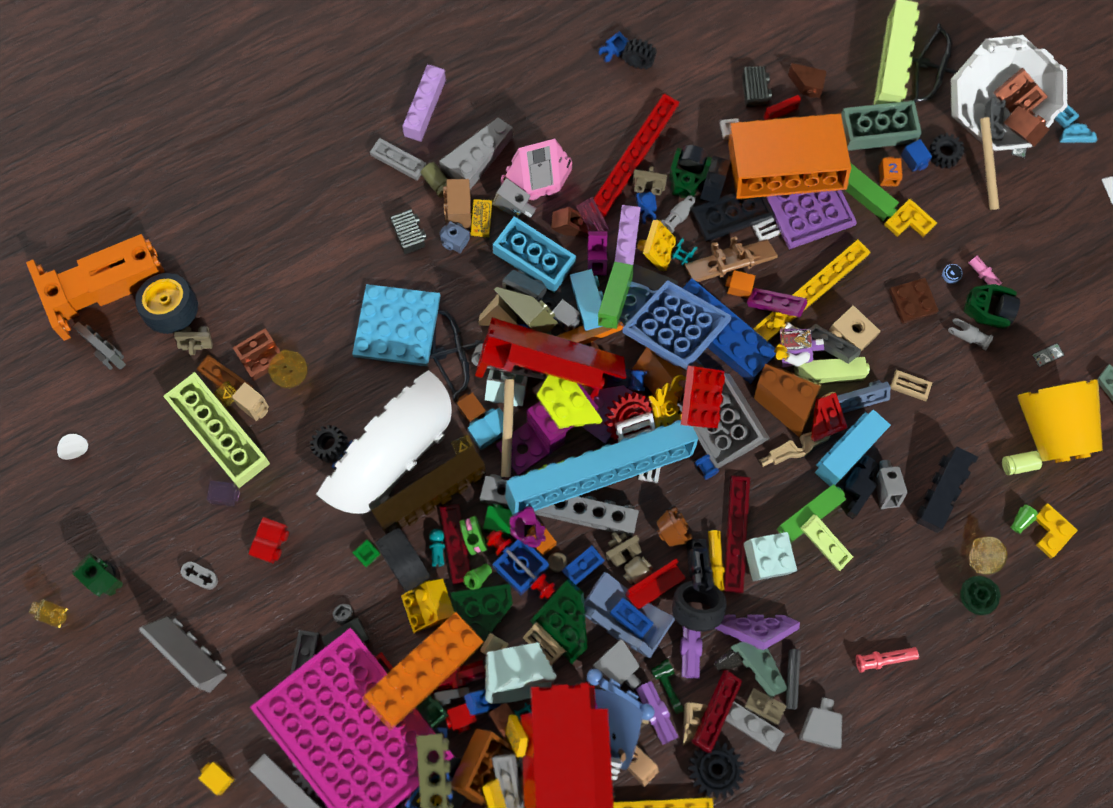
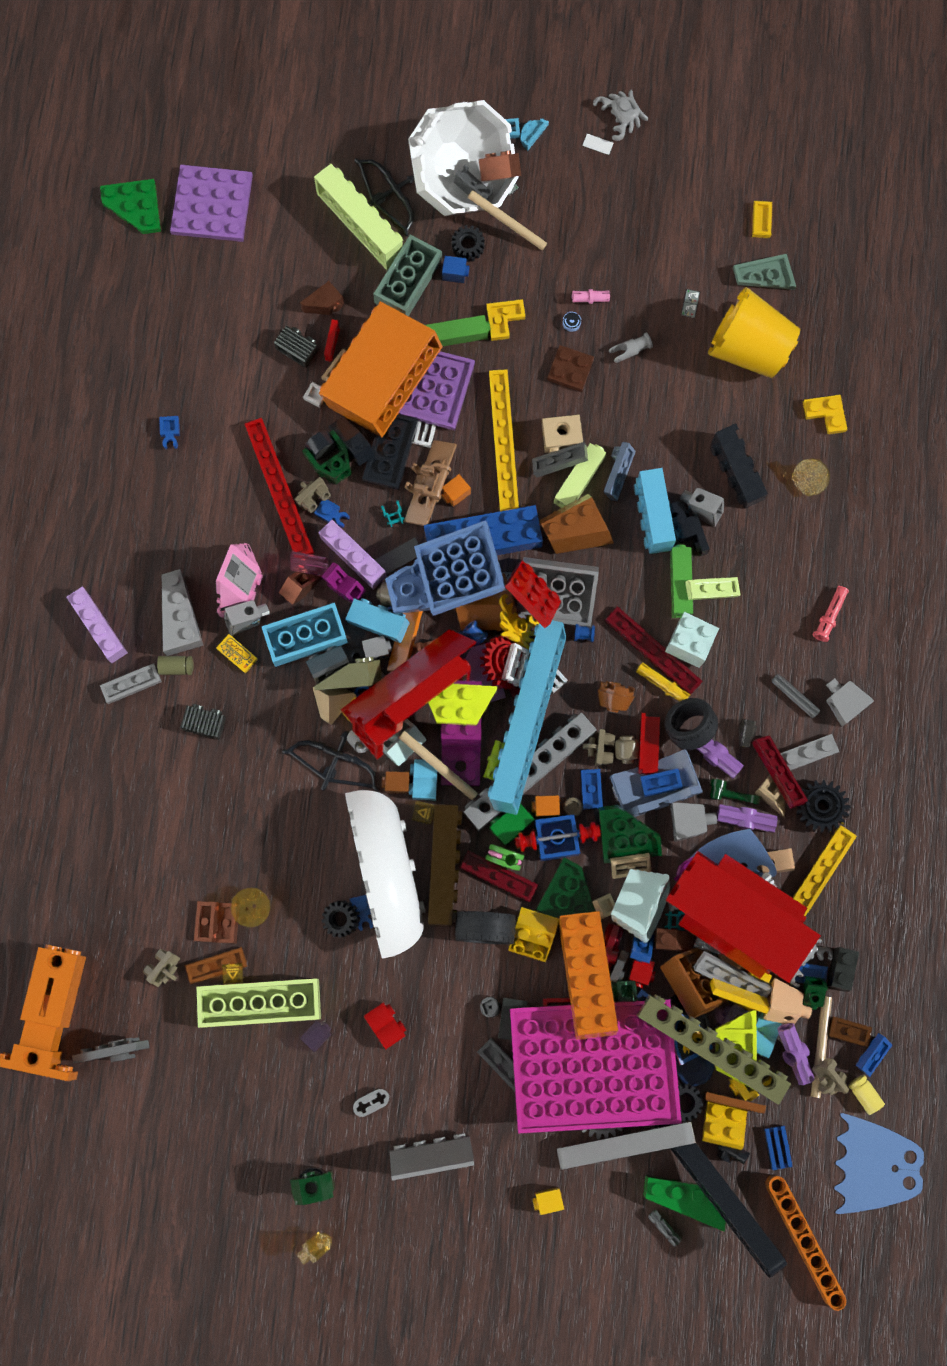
camera: 50 degrees left, 5 degrees up
(71, 446) = (179, 1135): white sticker -> none
(166, 303) = (114, 968): black wheel -> none
(251, 402) = (257, 958): tan brick -> none
(366, 553) = (453, 953): green tile -> none
(396, 325) = (278, 791): medium azure plate -> none
(436, 537) = (482, 887): teal pin -> none
(454, 237) = (236, 681): sand blue brick -> none
(457, 202) = (213, 662): medium nougat brick -> none
(477, 576) = (540, 880): bright green cone -> none
(516, 736) = (691, 939): yellow tile -> none
(527, 517) = (526, 816): magenta helmet -> none
(595, 677) = (688, 844): medium blue plate -> none
(615, 295) = (396, 597): bright green brick -> none
(639, 54) = (194, 416): black tyre -> none
(658, 245) = (374, 530): yellow plate -> none
(678, 213) = (358, 493): light grey piece -> none
(699, 563) = (658, 698): black plate -> none
(759, 630) = (741, 693): medium lavender plate -> none
(763, 666) = (764, 709): sand green wing -> none
(765, 706) = (802, 732): dark tan hips -> none
(777, 302) = (494, 474): magenta plate -> none
(790, 450) = (618, 558): tan piece -> none
(795, 344) = (539, 487): torso -> none
(827, 417) = (616, 510): red wing -> none
(890, 171) = (452, 300): orange brick -> none
(894, 386) = (623, 434): tan tile -> none
(978, 303) = (632, 304): dark green piece -> none
(980, 595) = (837, 506): clear green cone -> none
(1020, 91) = (467, 148): copper slope -> none
(1021, 463) = (760, 393): yellowish green piece -> none
(1025, 516) = (802, 426): bright green cone -> none

